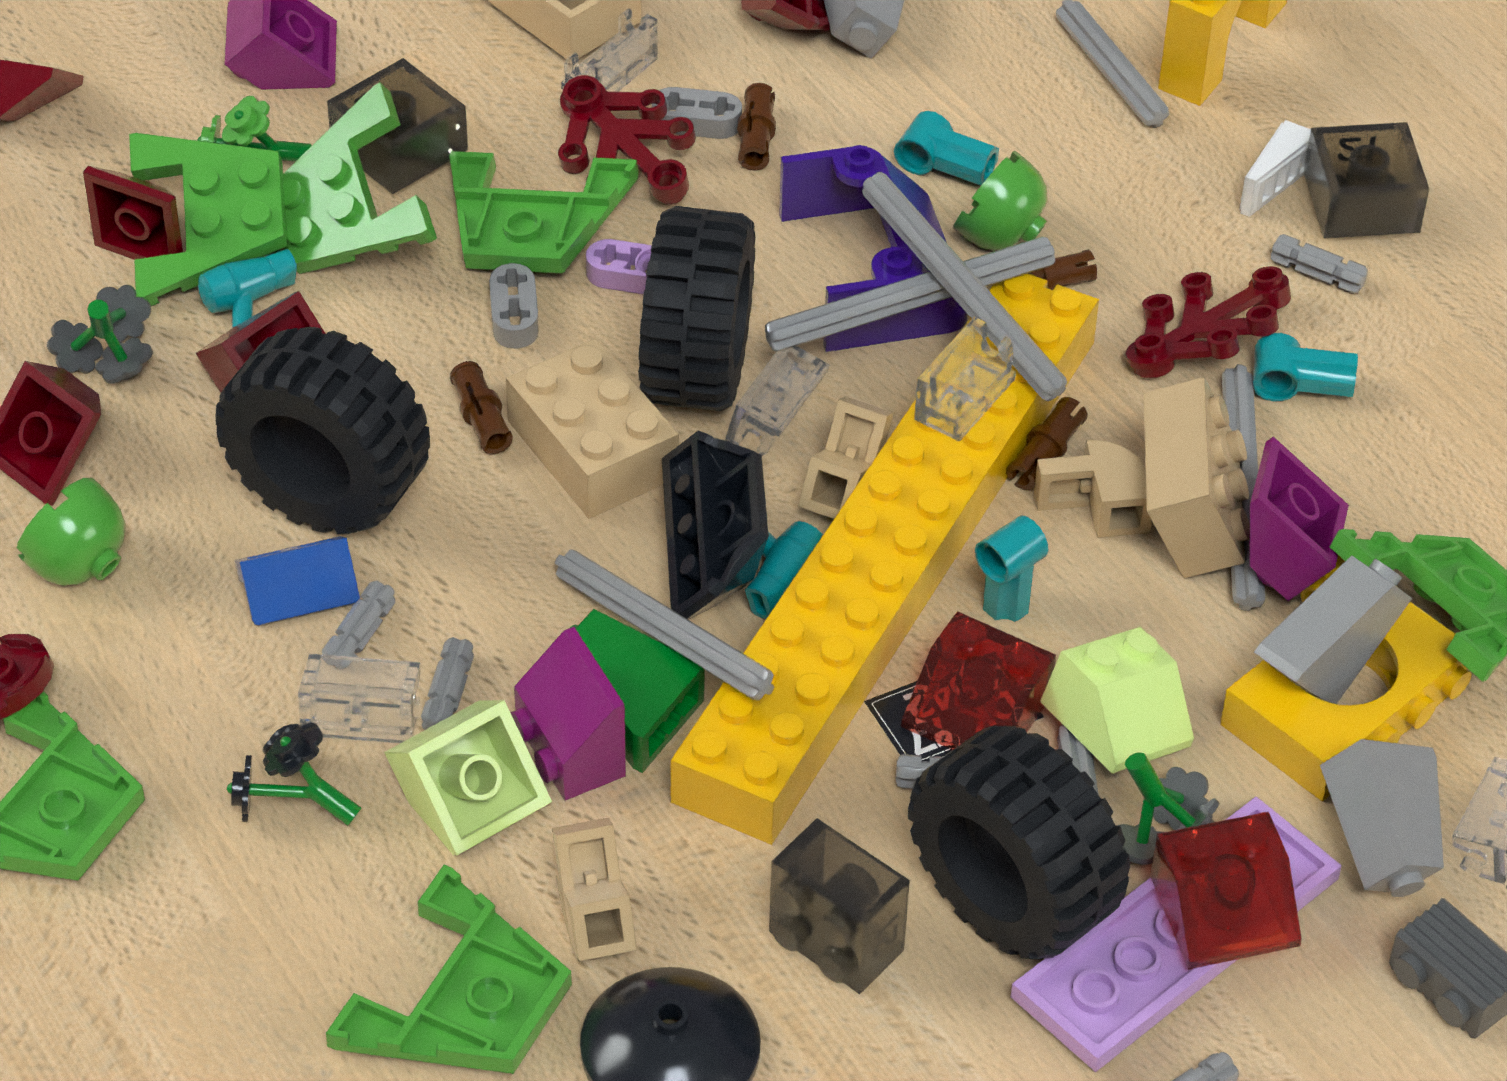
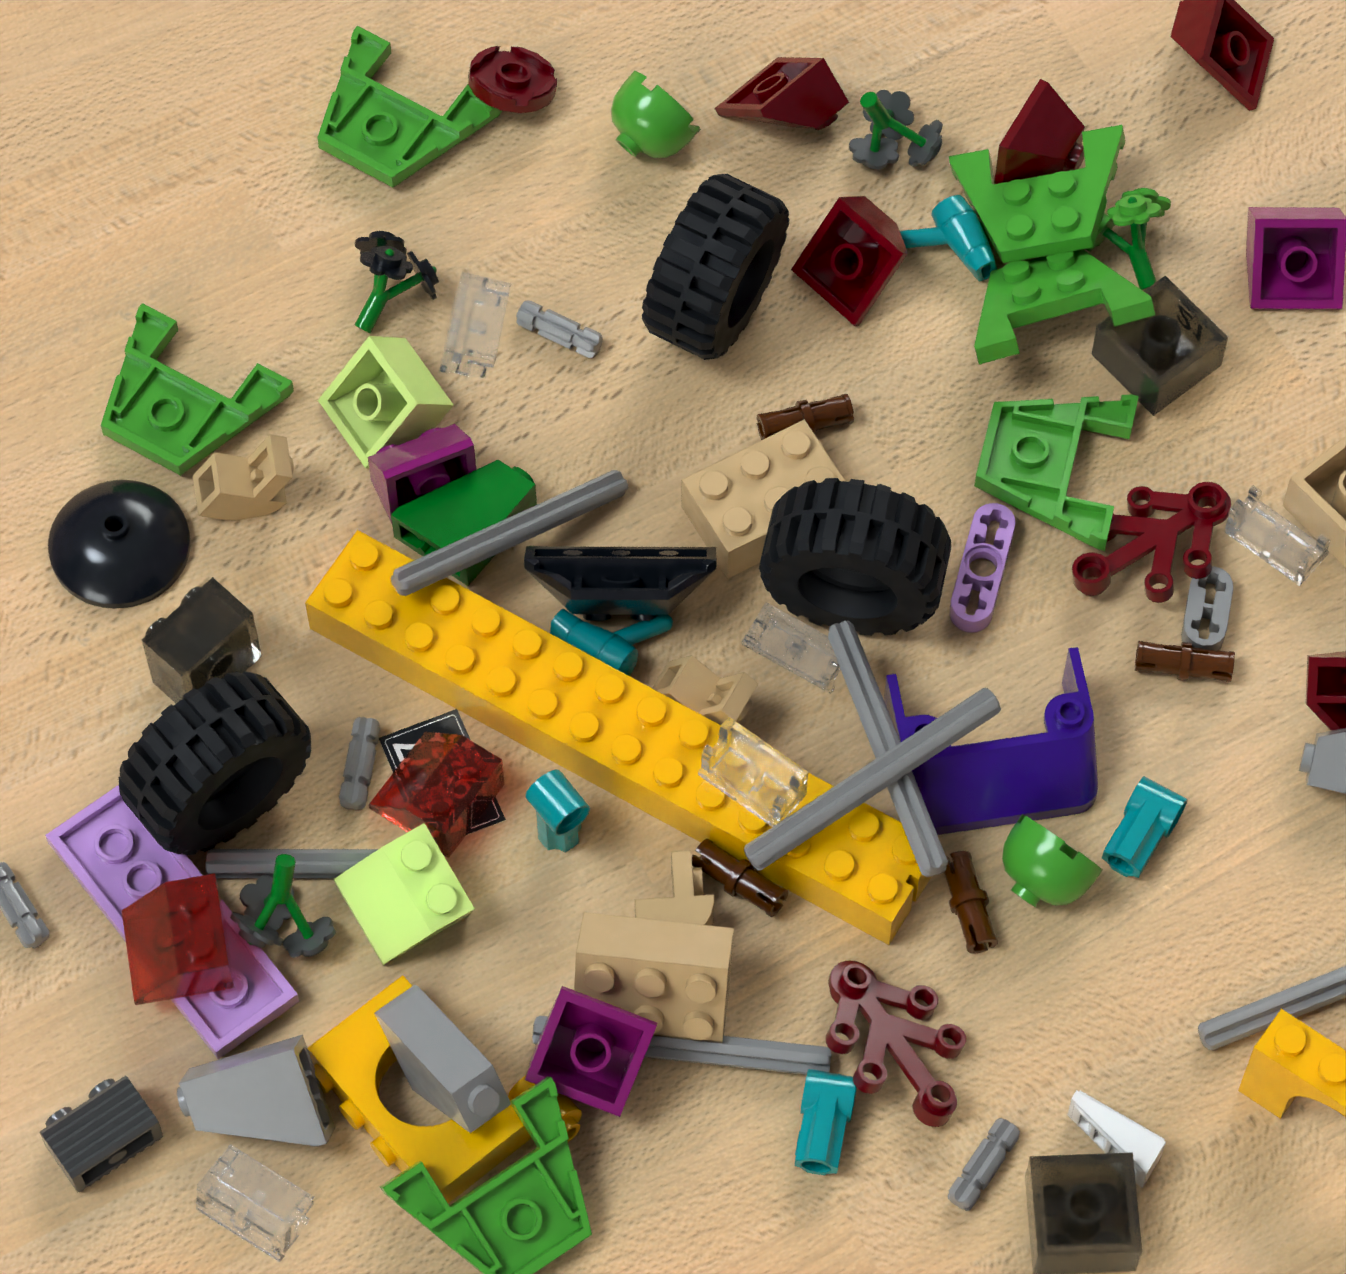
camera: 95 degrees right, 15 degrees up
(298, 580) = (611, 278): blue panel -> none
(448, 681) = (489, 392): light grey axle -> none
(506, 306) = (938, 448): light grey beam -> none

